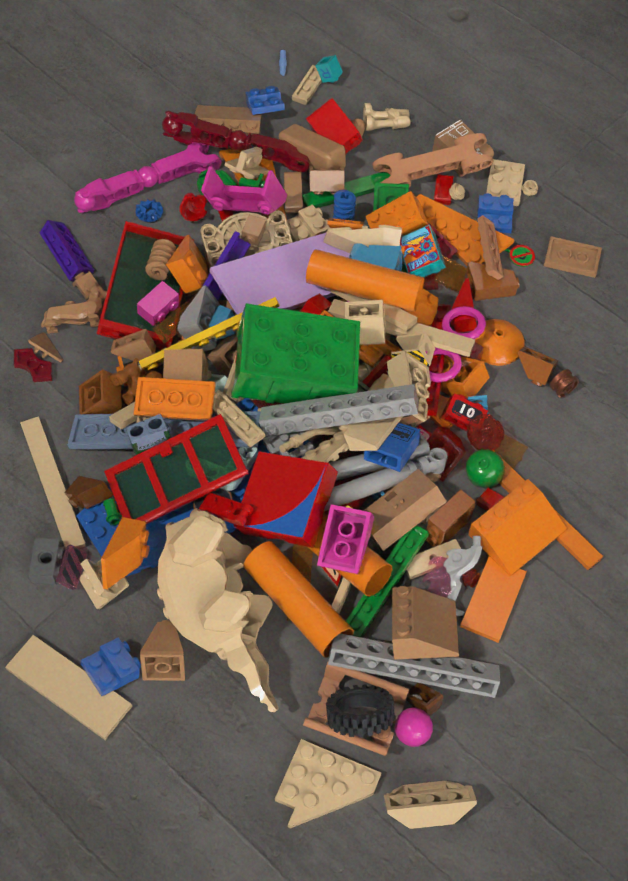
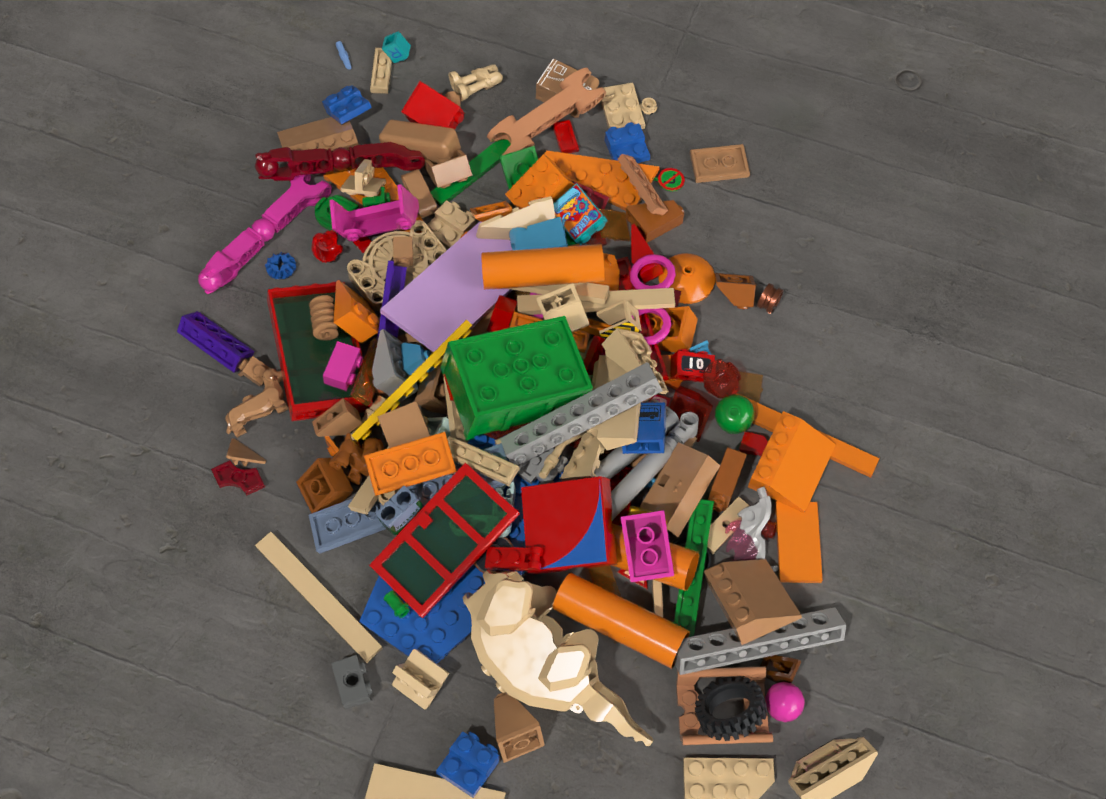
camera: 20 degrees left, 5 degrees up
(70, 567) = (380, 677): clear pink tile -> none
(87, 492) = (361, 593): reddish brown slope -> none
(124, 551) = (434, 641): orange slope -> none
(344, 205) = (479, 191): blue piece -> none
(457, 191) = (580, 135): tan plate -> none

